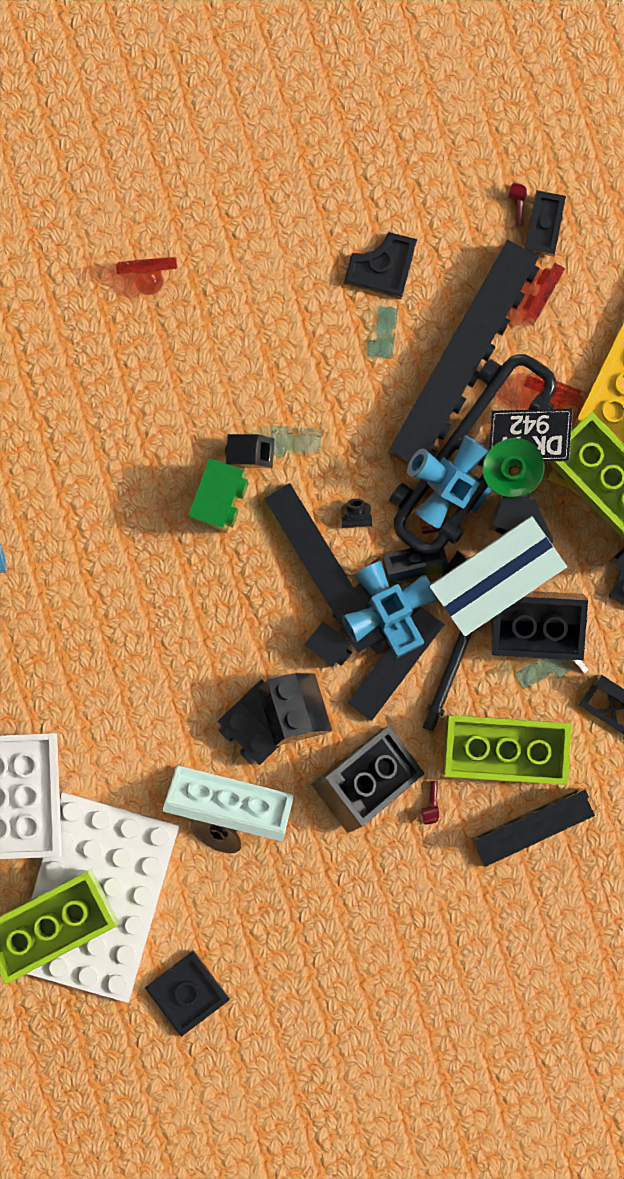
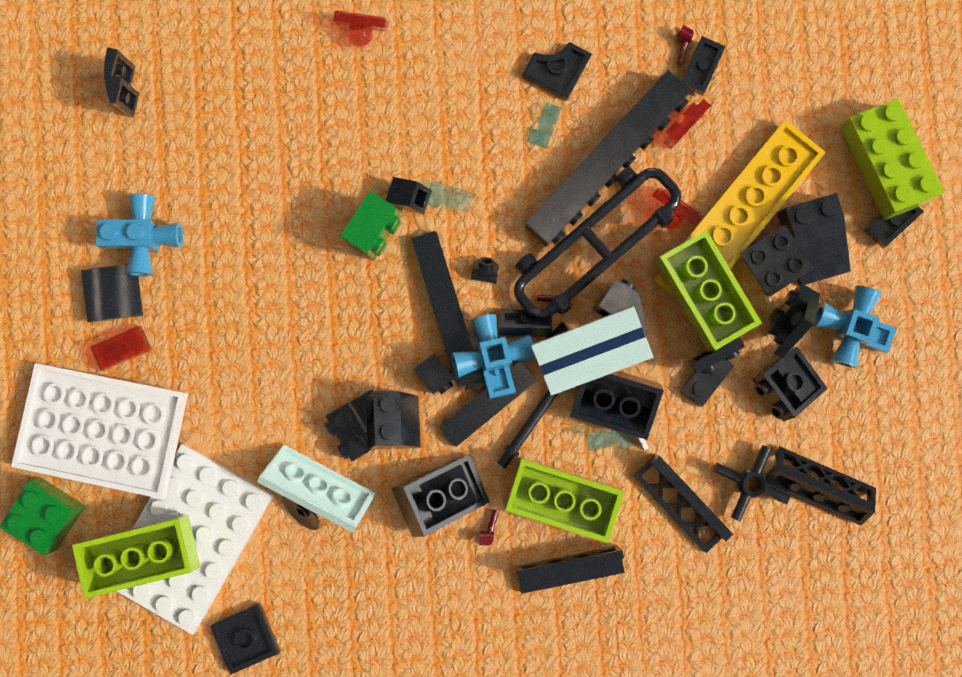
camera: 15 degrees right, 0 degrees up
(449, 479) = (570, 260): dark azure brick -> none
(509, 455) = (625, 250): green dish -> none
(542, 427) = (648, 238): black sticker -> none

